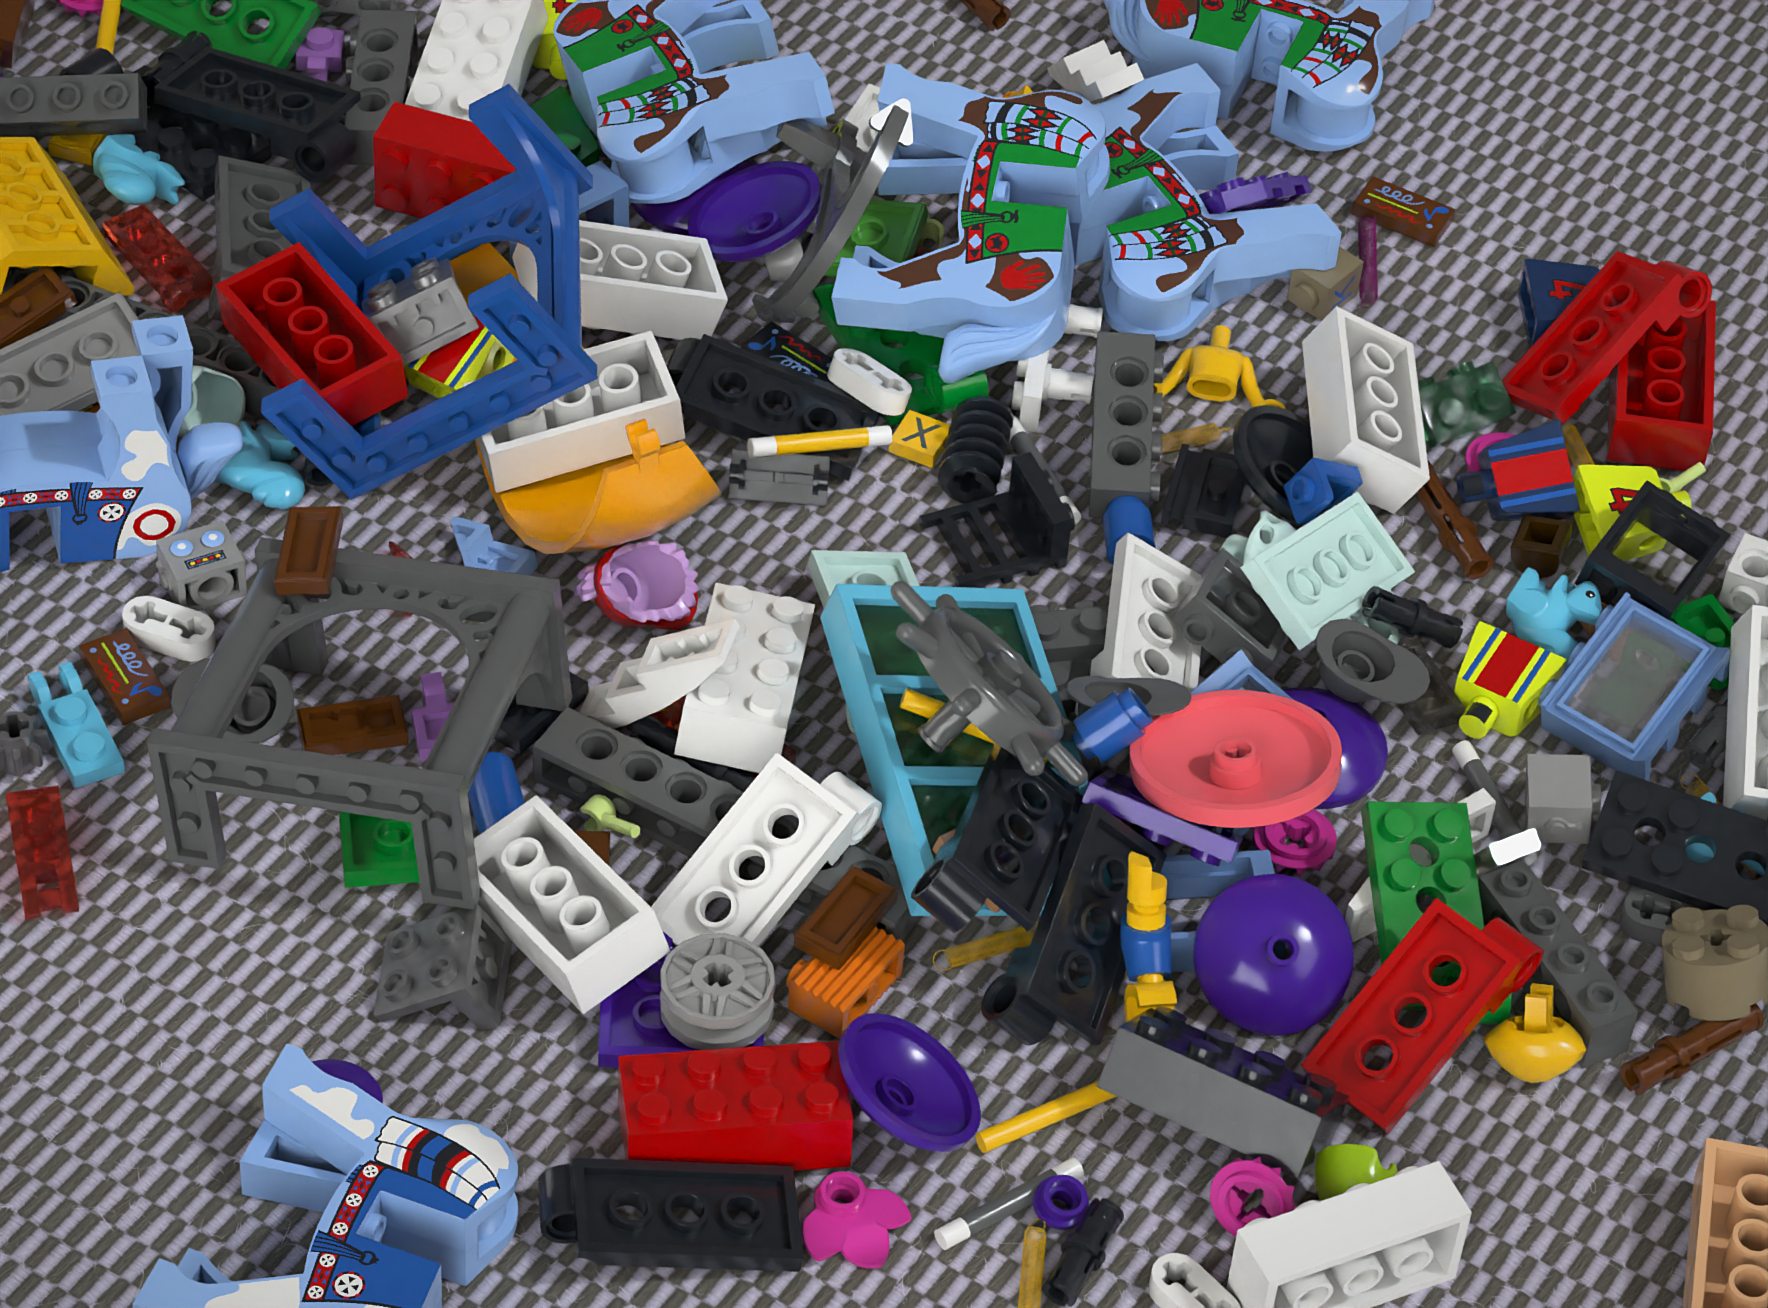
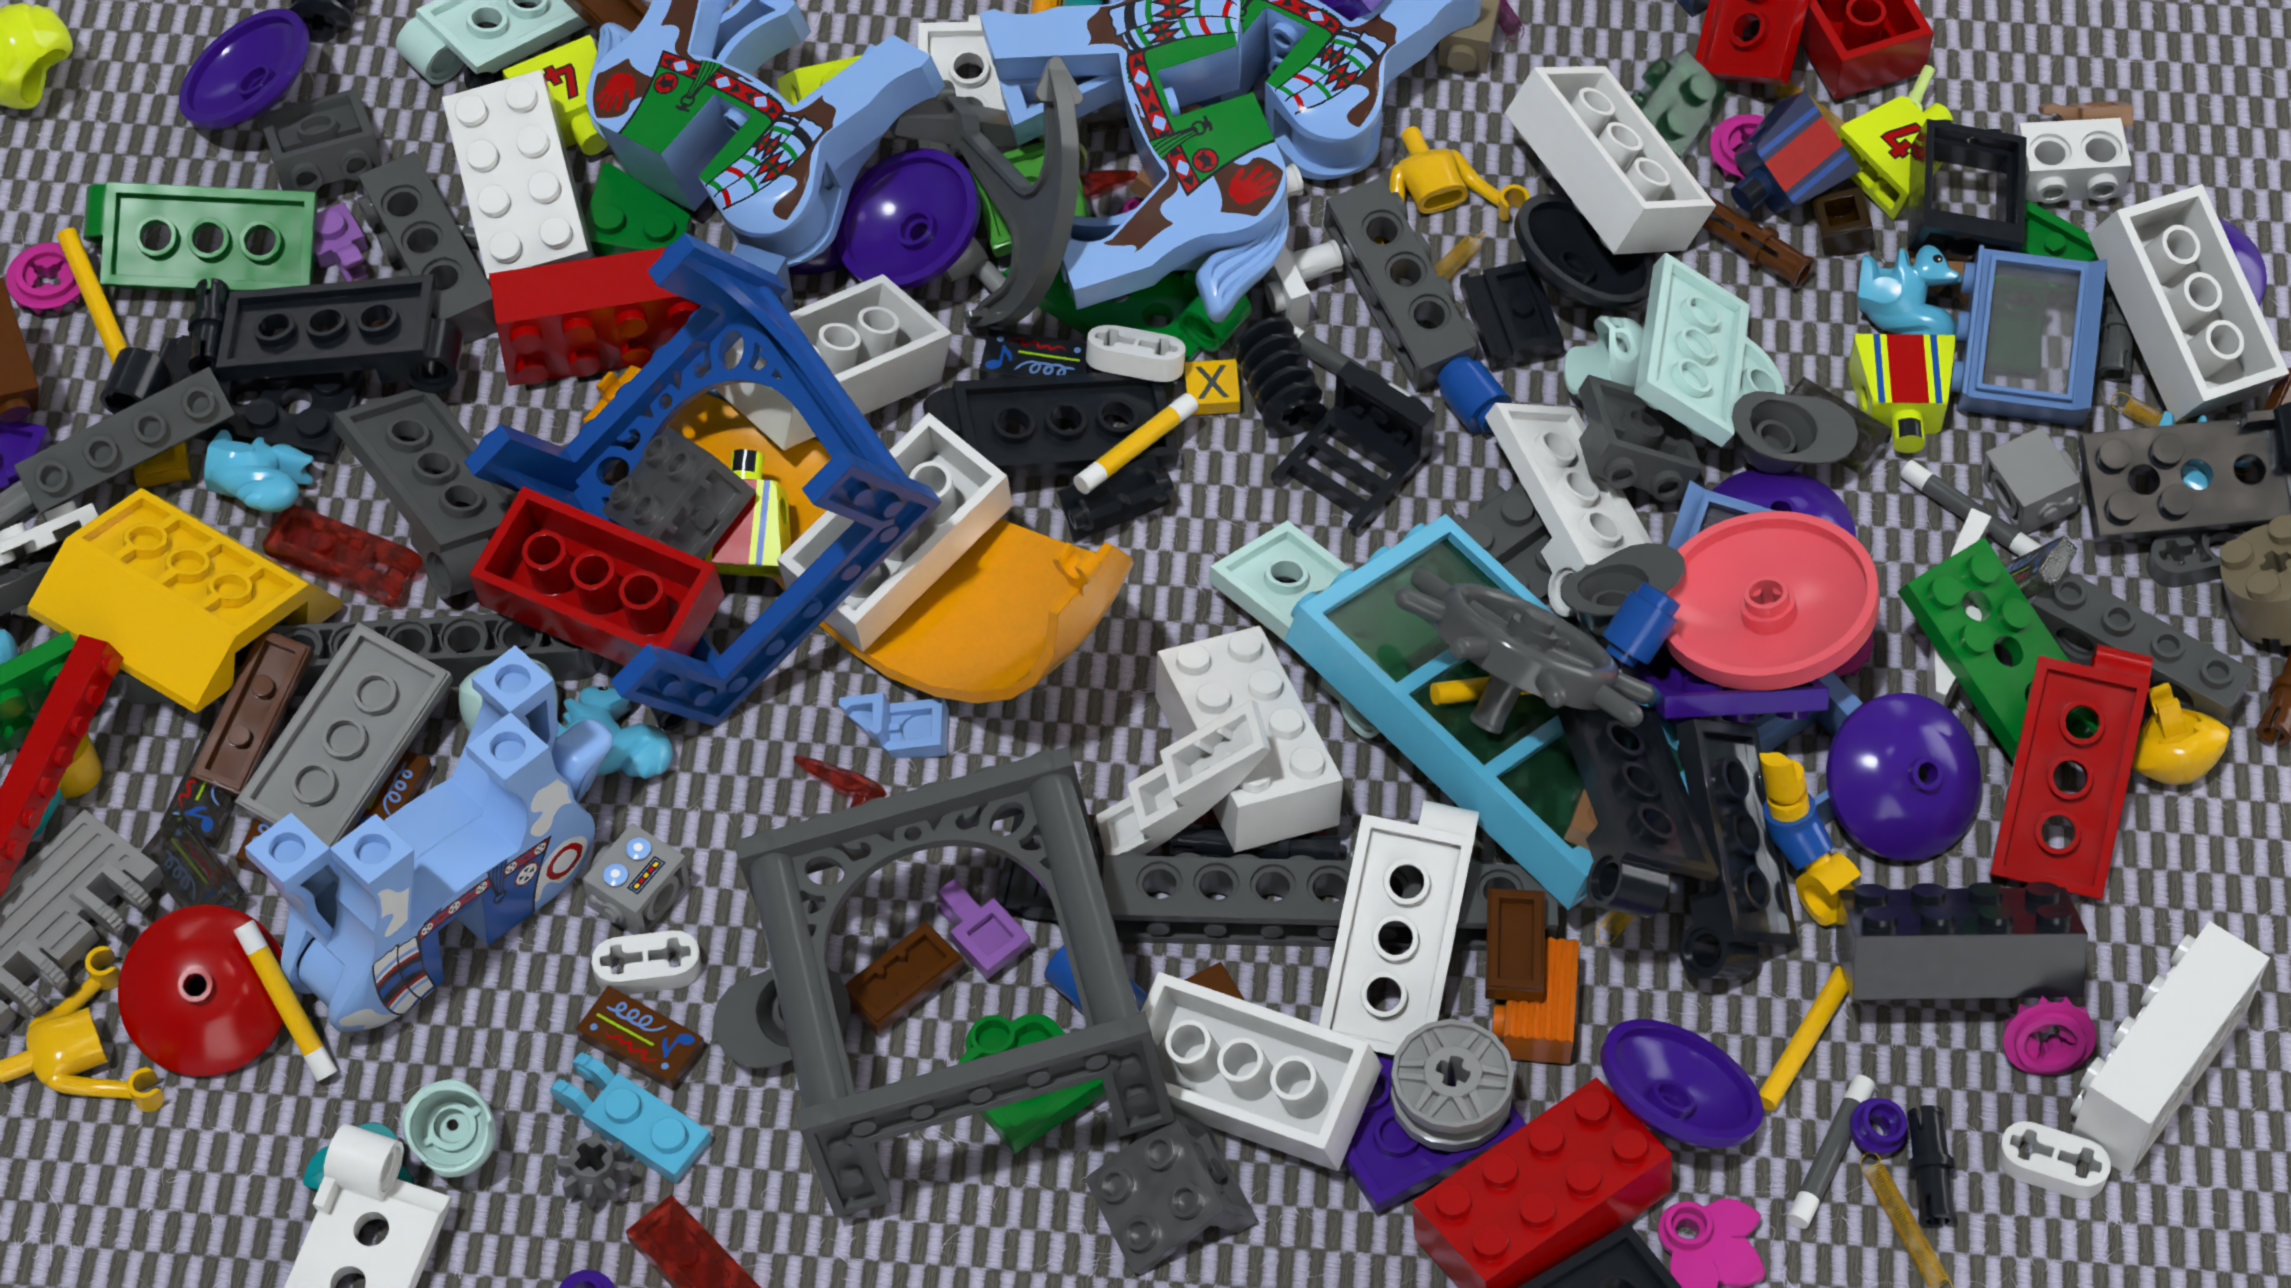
camera: 25 degrees left, 10 degrees up
(309, 550) = (799, 834): reddish brown tile -> none
(604, 817) = (1199, 953): yellowish green hand -> none
(642, 585) = (1083, 690): lavender hair -> none
(1320, 487) = (1631, 271): blue bracket -> none
(1346, 1166) = (2123, 970): lime hair -> none
(1412, 617) = (1787, 357): black pin -> none

